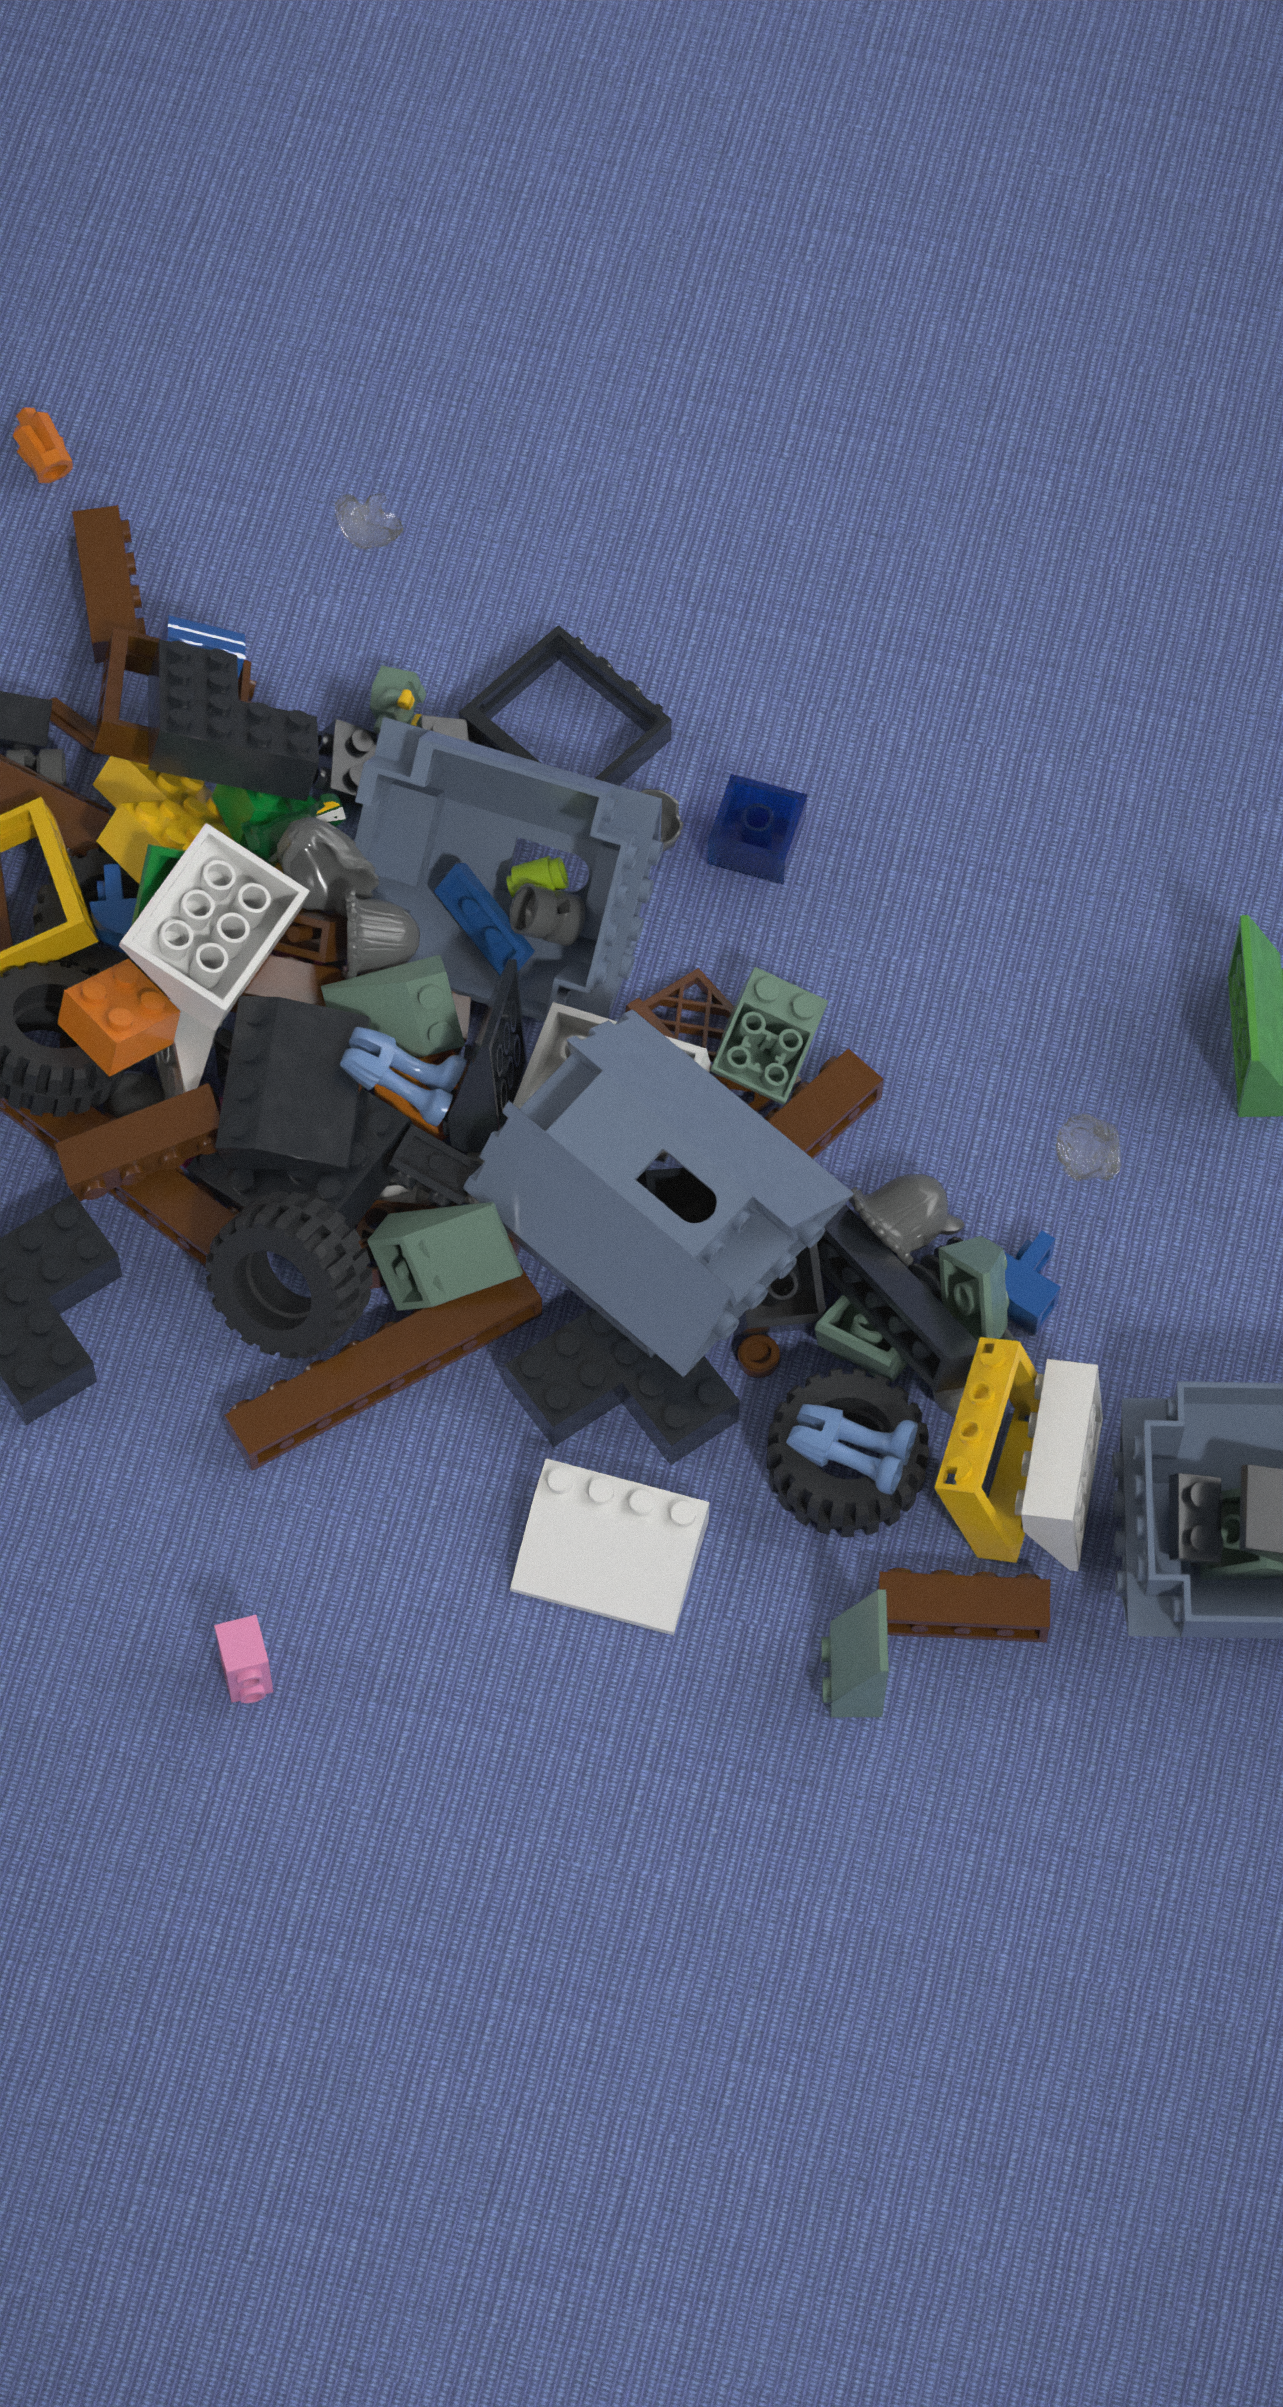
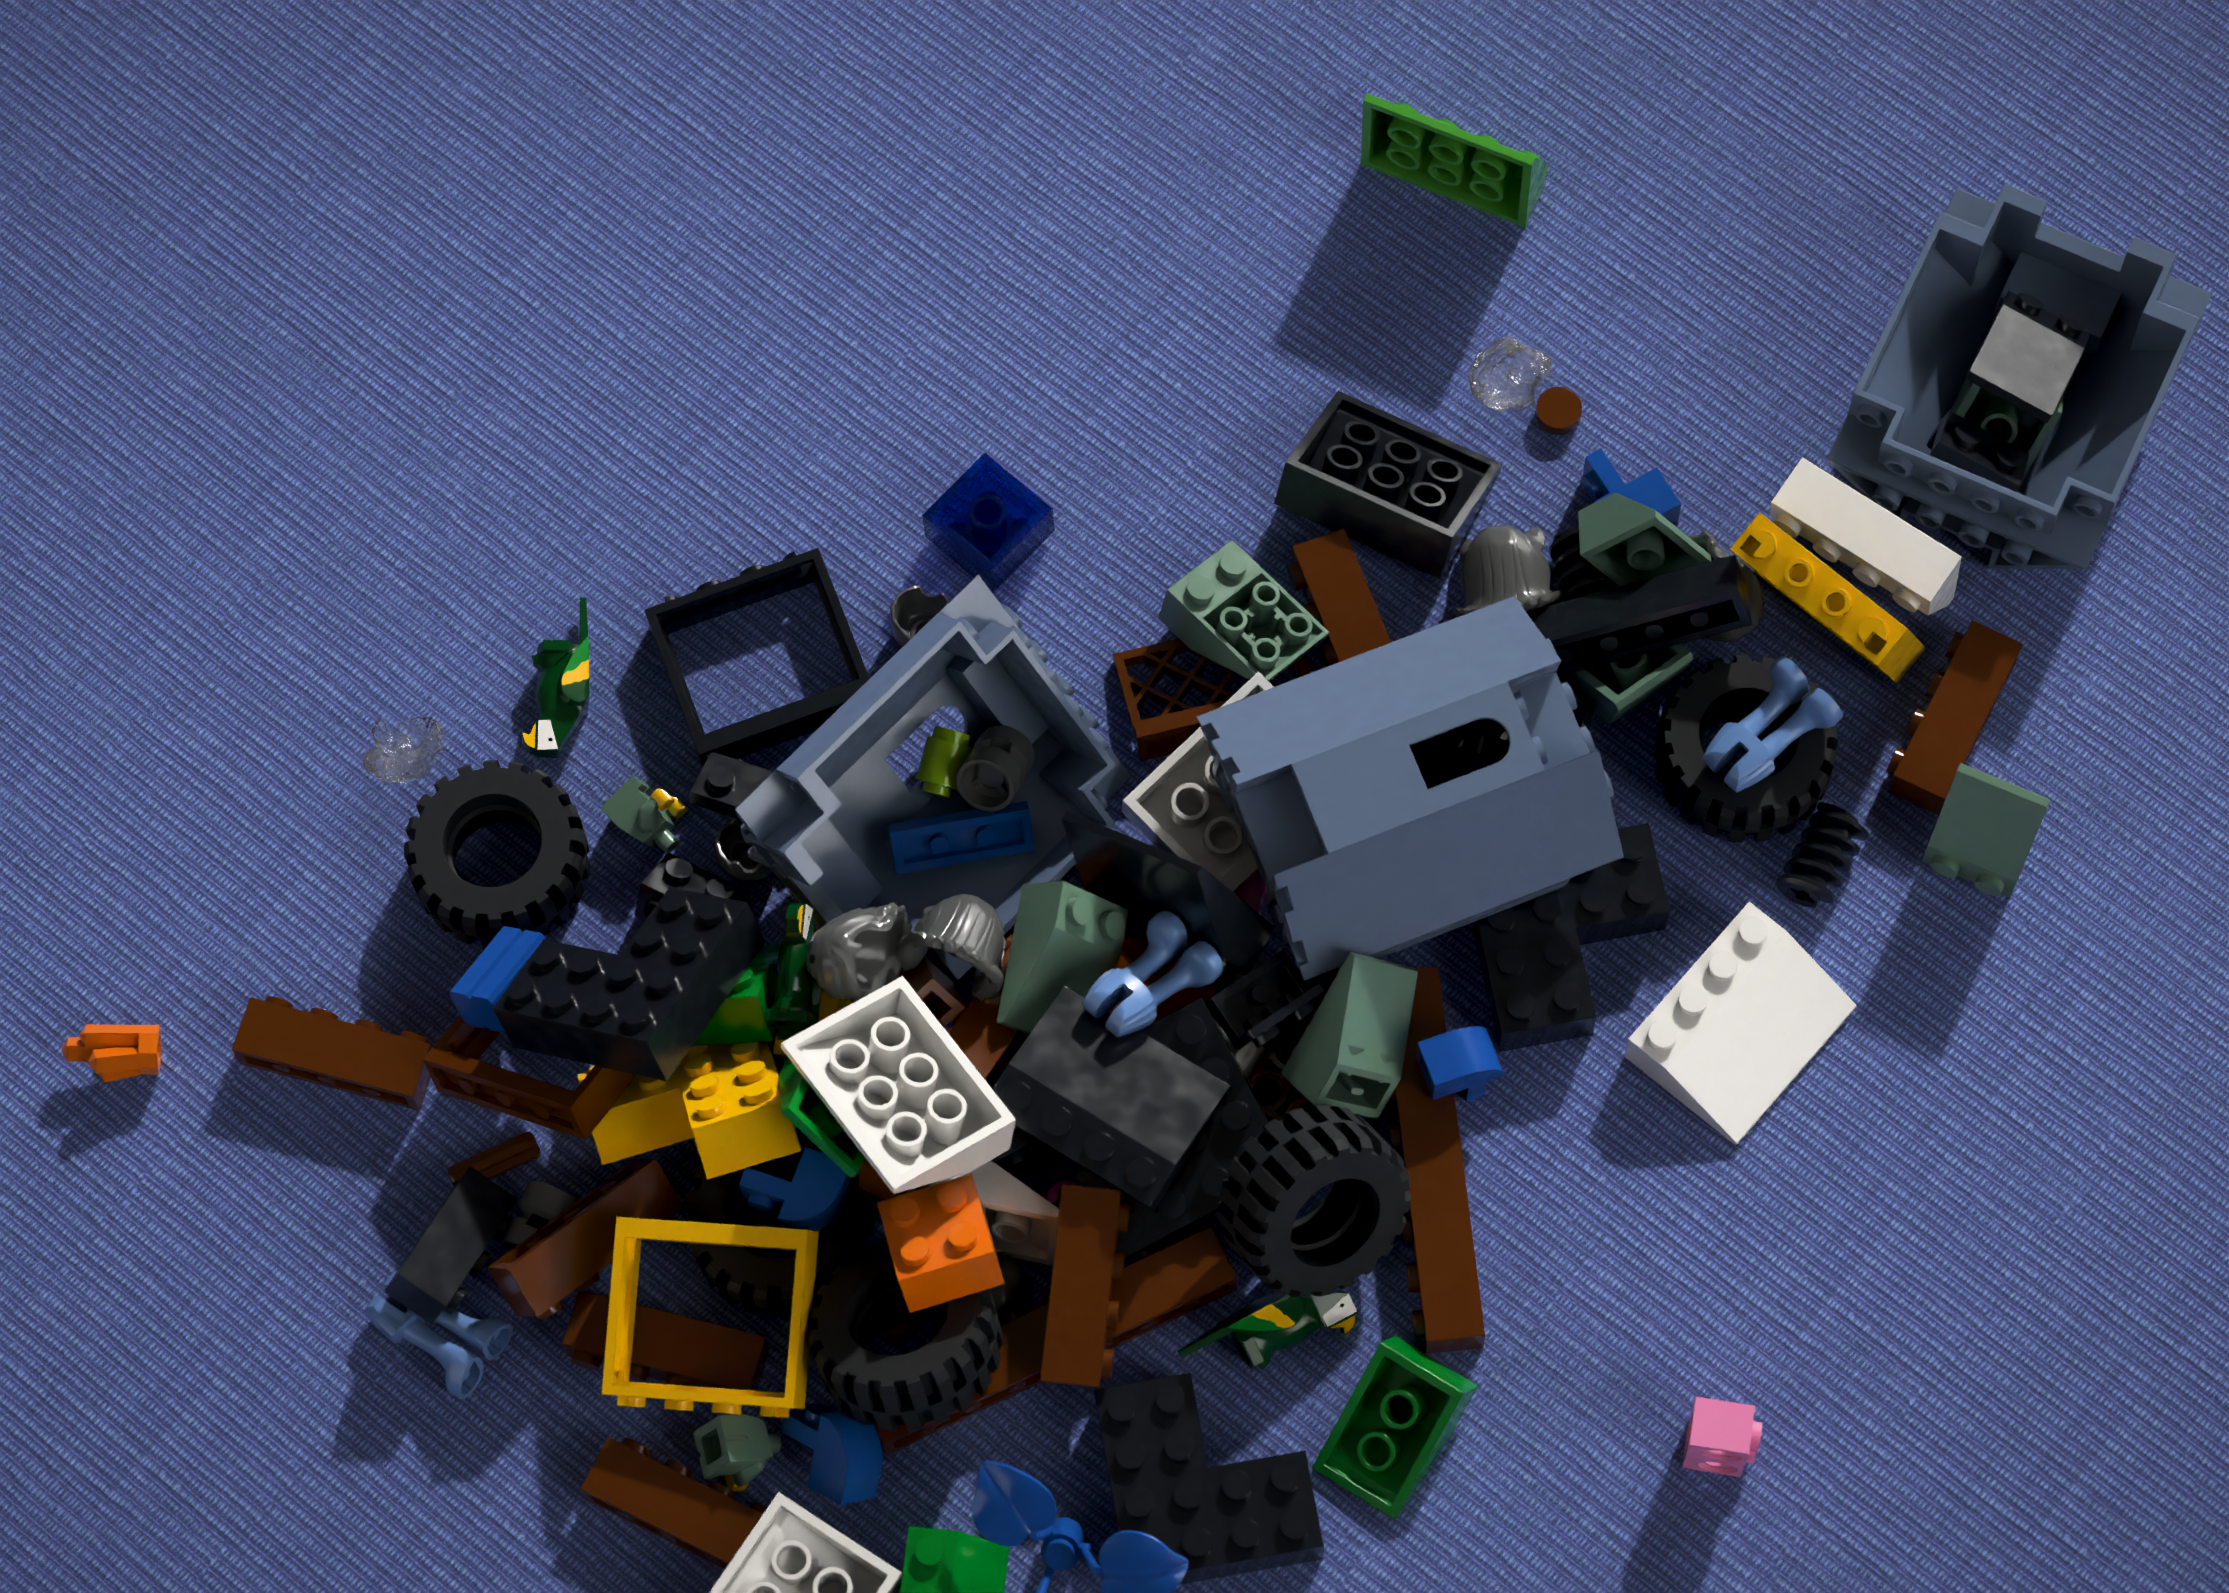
camera: 60 degrees left, 5 degrees up
(154, 1425) = (1394, 1425): none -> green slope
(193, 1309) = (1277, 1324): none -> dark green animal
(307, 573) = (488, 798): none -> black tyre
(464, 1341) = (1458, 1062): none -> blue brick
(470, 604) = (560, 691): none -> dark green animal
(785, 1551) = (1820, 855): none -> black piece
(948, 1099) = (1386, 483): none -> black slope
(1083, 1204) = (1558, 410): none -> reddish brown tile

